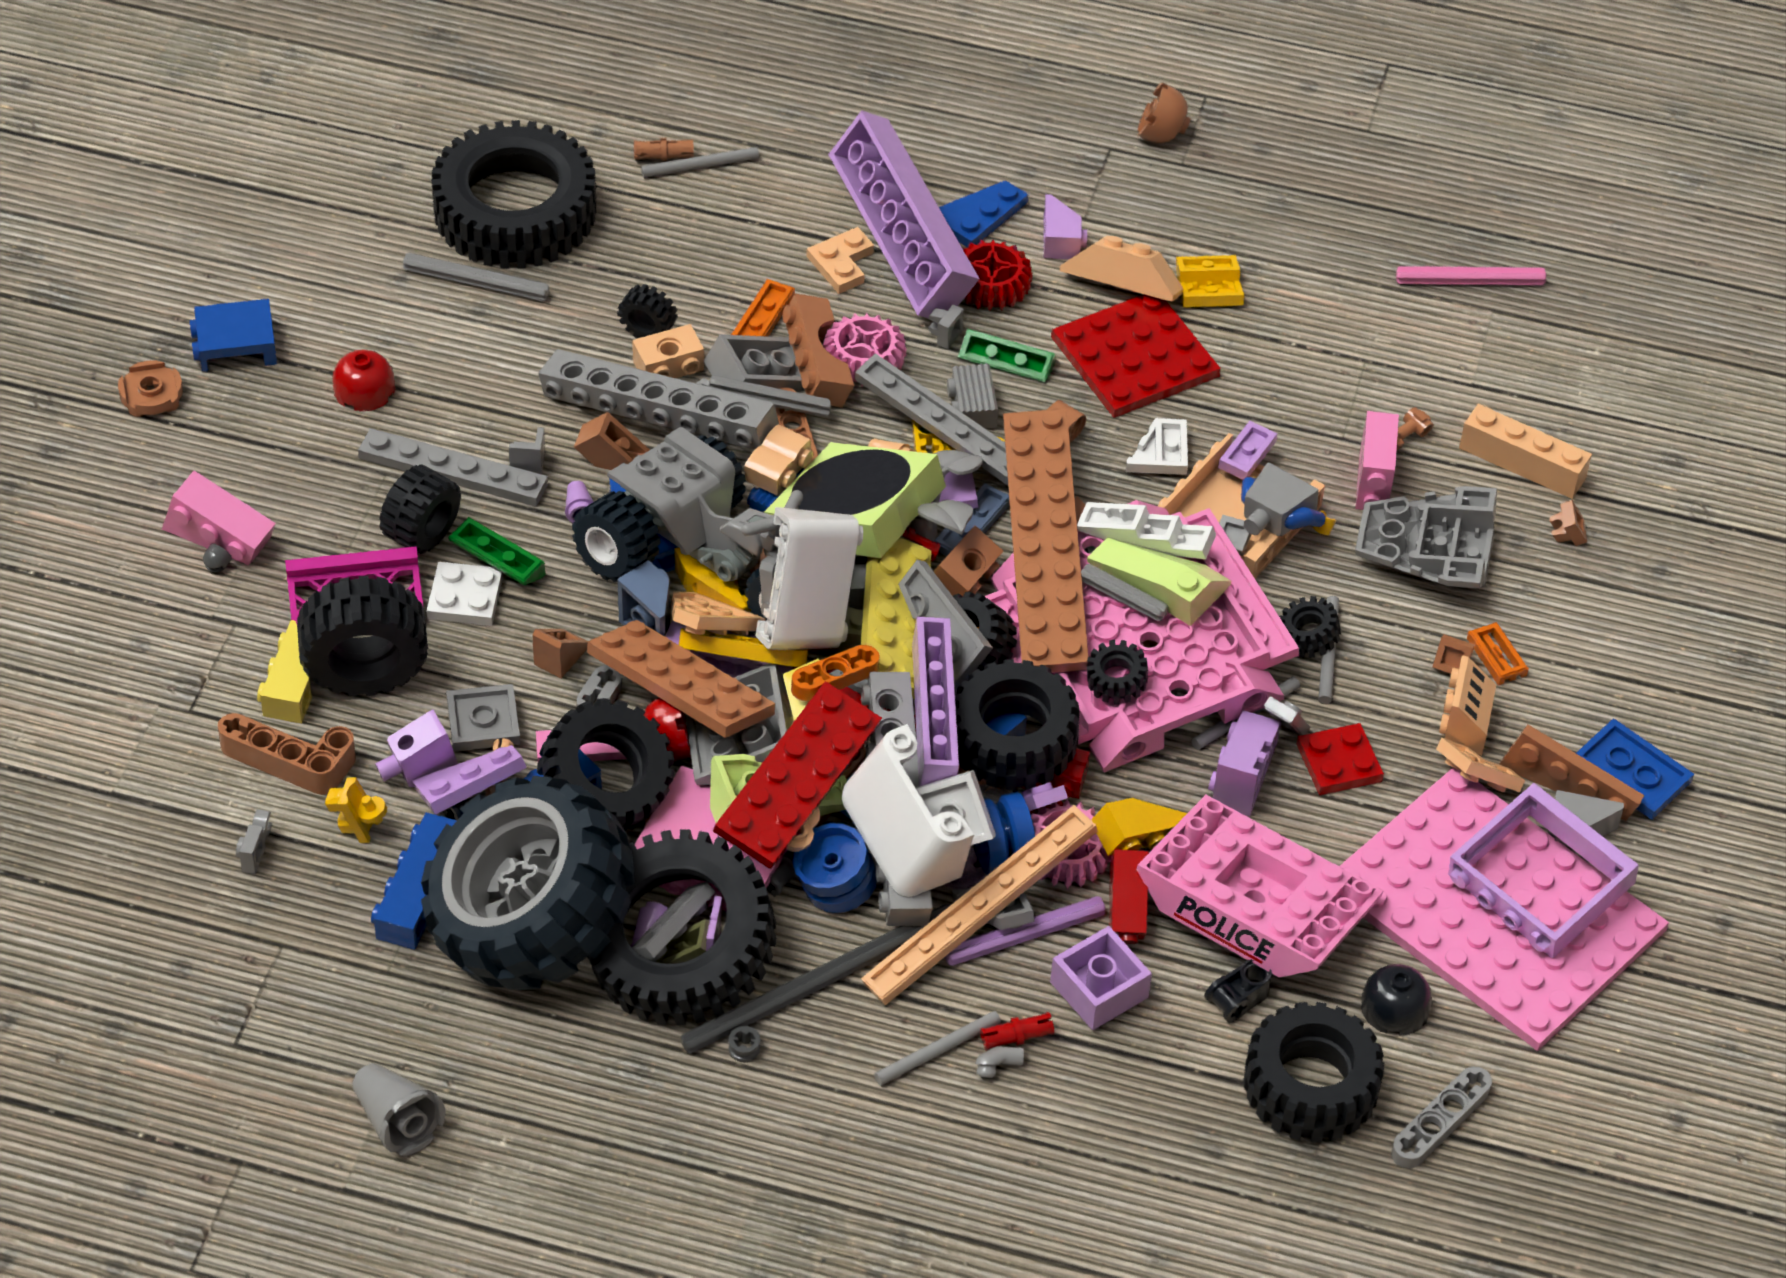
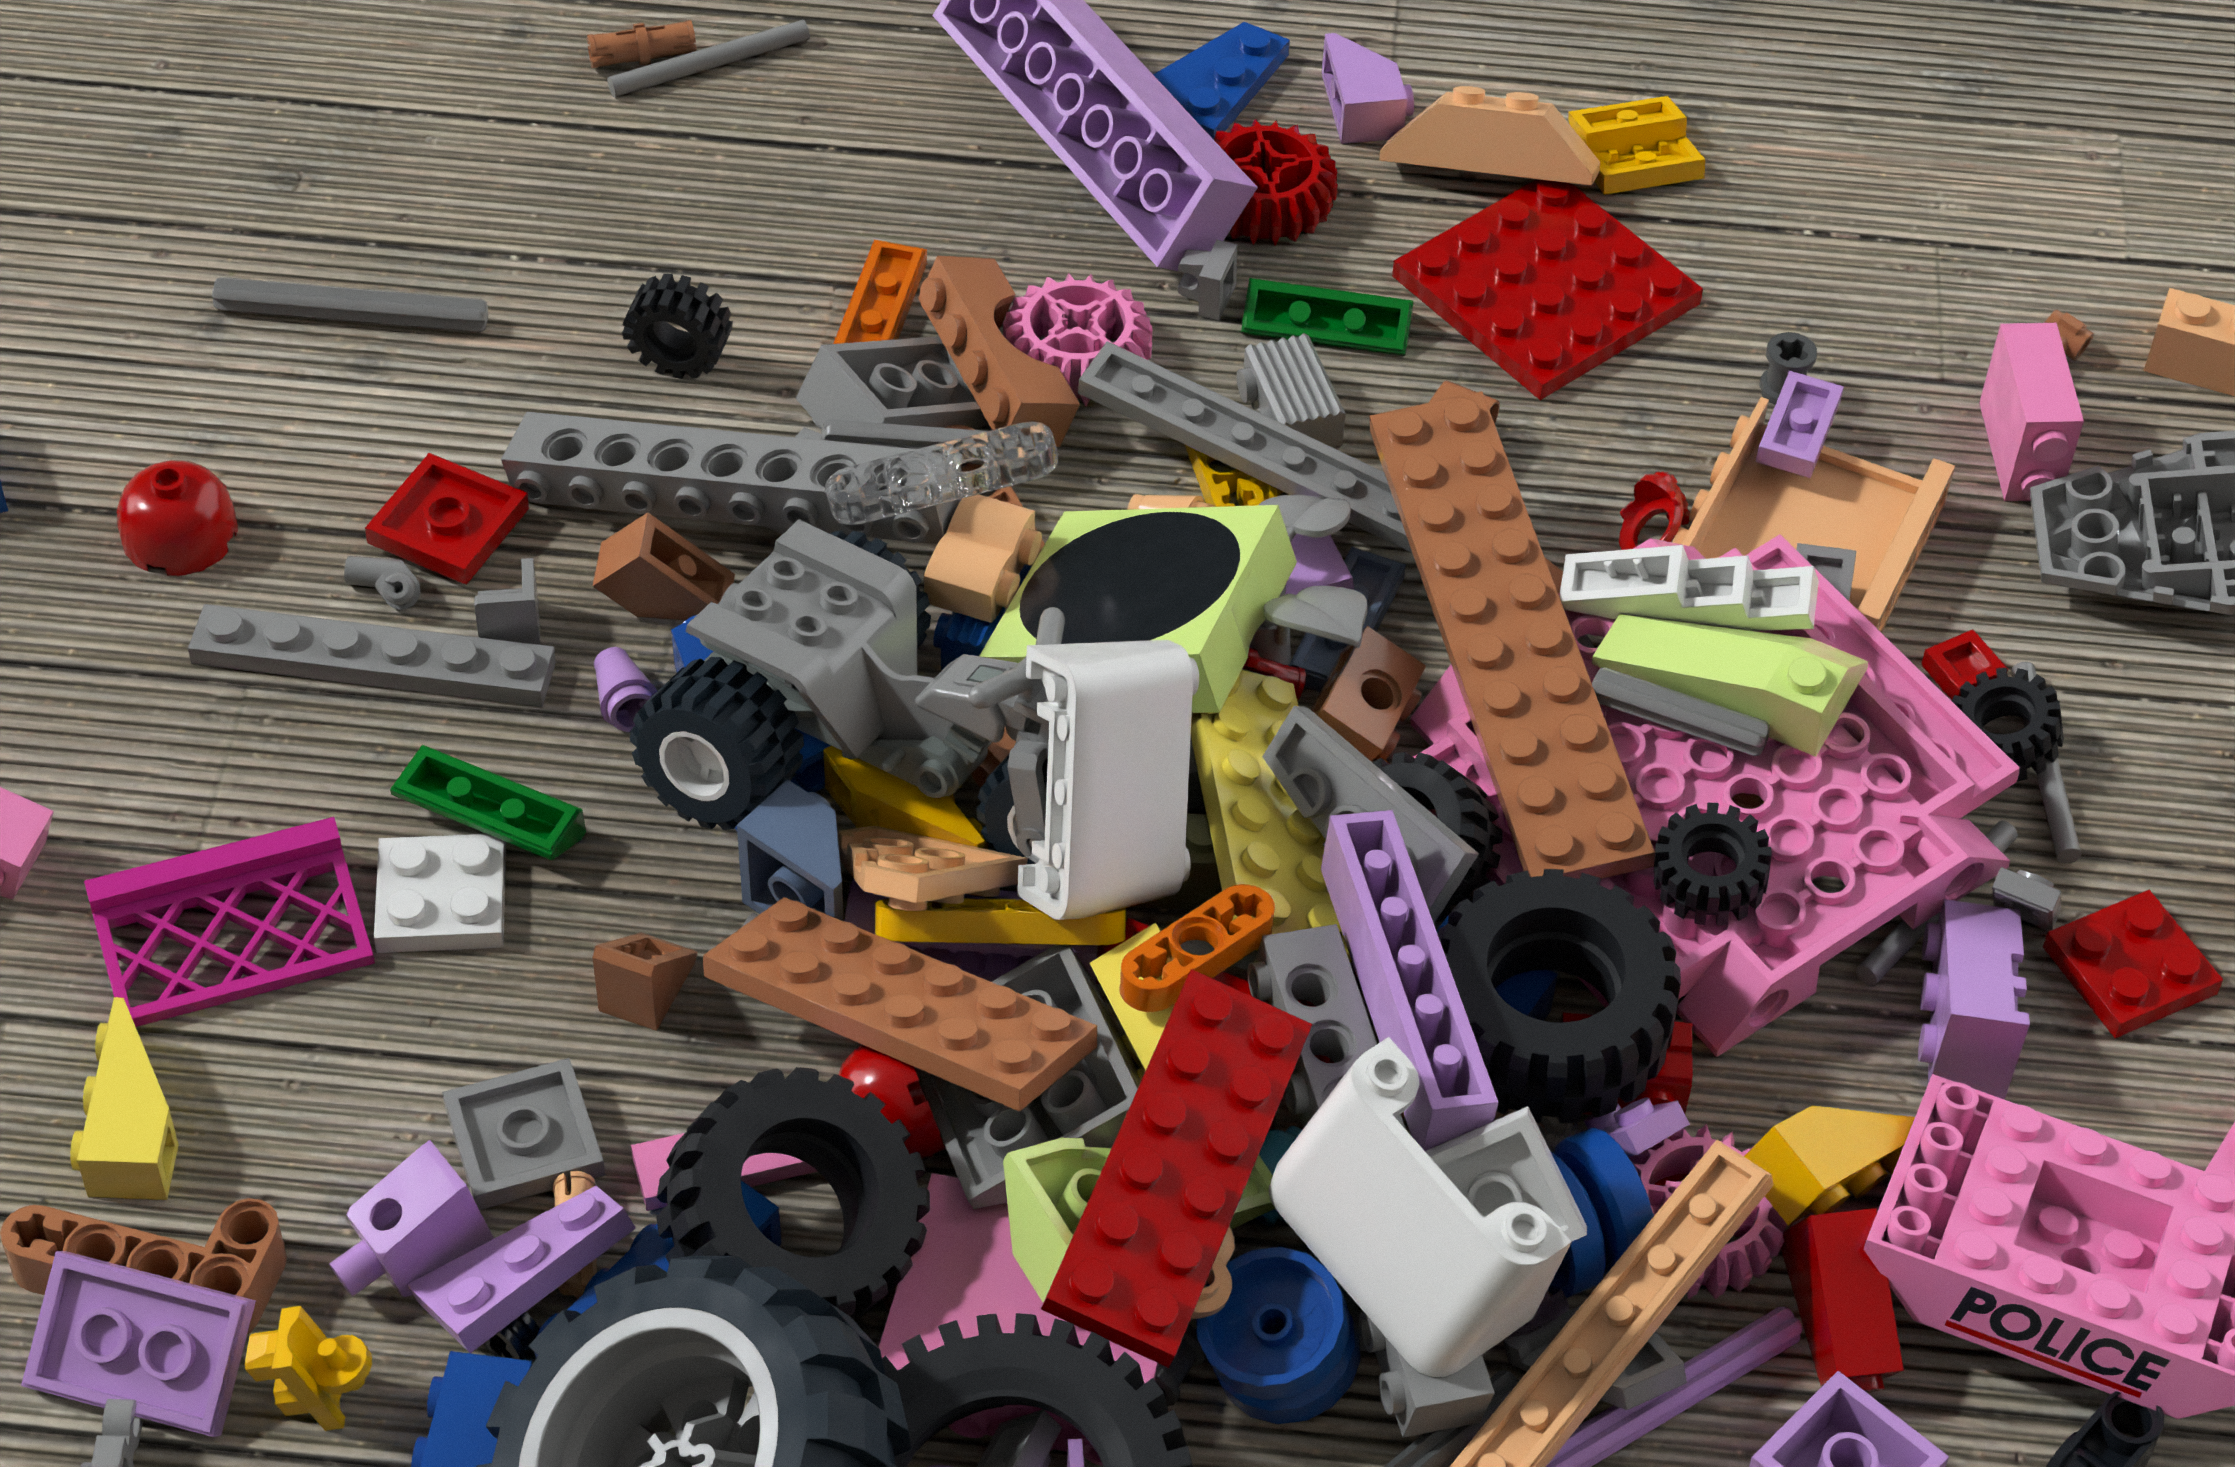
camera: 10 degrees left, 0 degrees up
(276, 783) = (138, 1339): none -> lavender tile
(362, 608) = (262, 1012): black tyre -> none
(420, 508) = (328, 743): black tyre -> none
(468, 426) = (388, 576): none -> light grey arm
(505, 400) = (447, 518): none -> red plate
(519, 233) = (398, 220): black tyre -> none
(593, 689) = (724, 1045): light grey beam -> none
(670, 352) = (732, 390): light nougat brick -> none
(716, 415) = (940, 467): none -> clear beam
(836, 258) = (988, 187): light nougat plate -> none
(1156, 478) = (1652, 496): none -> red piece
(1162, 449) = (1646, 438): white wing -> none
(1254, 411) = (1786, 353): none -> dark grey bush
(1281, 503) = (1896, 508): light grey torso -> none
(1296, 588) = (1960, 661): none -> red plate
(1470, 275) = (2066, 79): bright pink axle -> none

